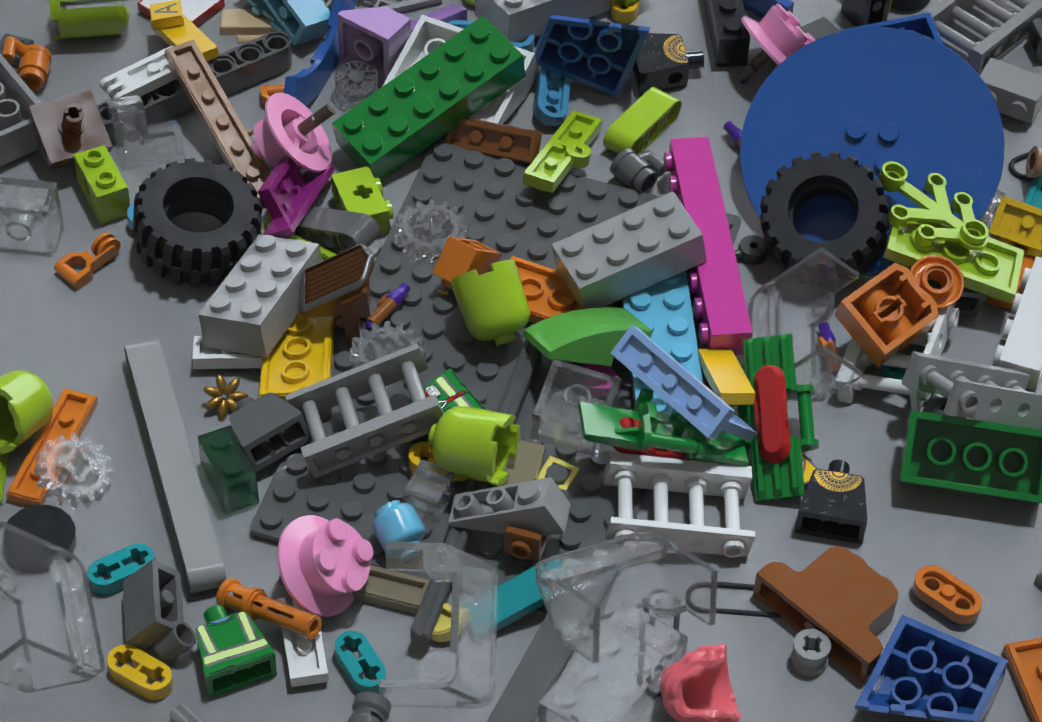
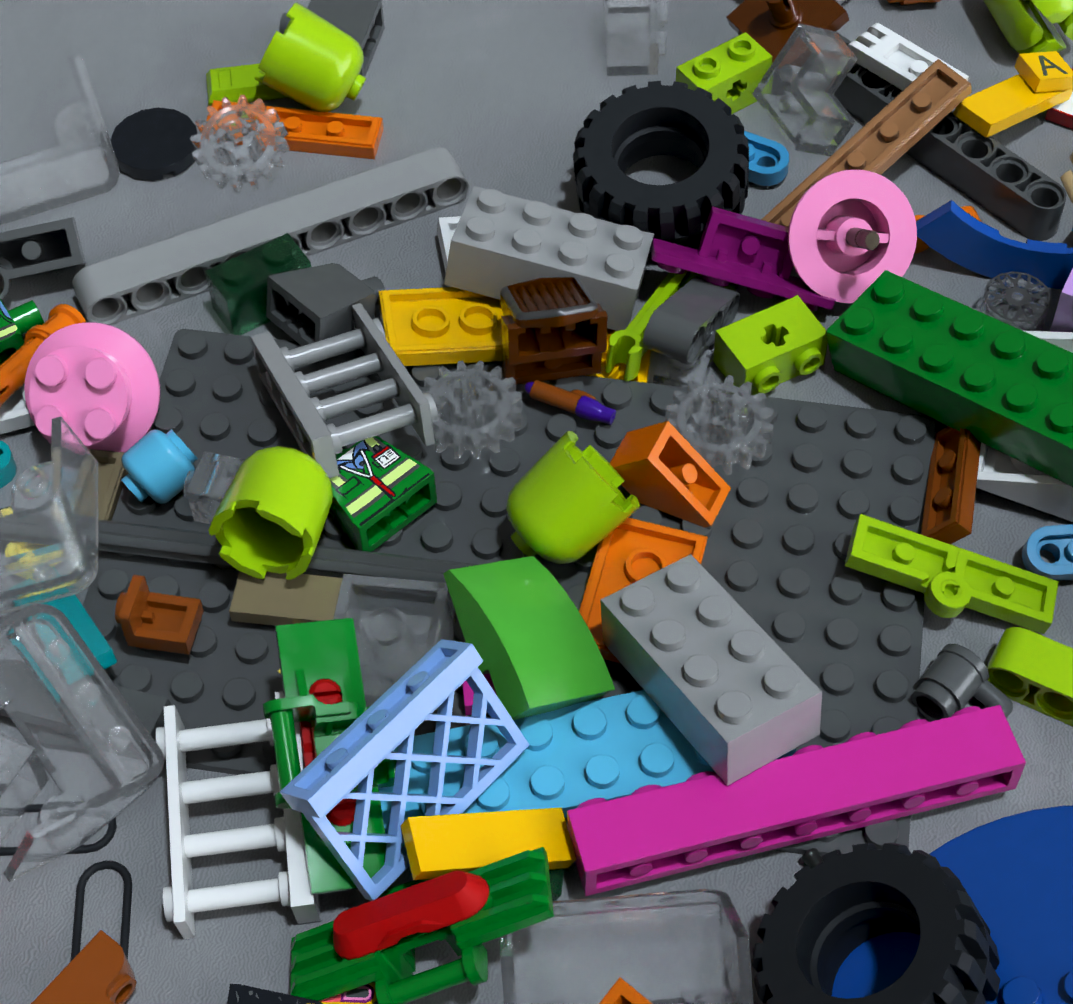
camera: 85 degrees right, 5 degrees up
(104, 248) = (571, 96): orange piece -> none
(118, 567) = (117, 218): teal beam -> none
(224, 389) = (391, 265): pearl gold plant -> none
(526, 505) = (175, 585): light grey slope -> none

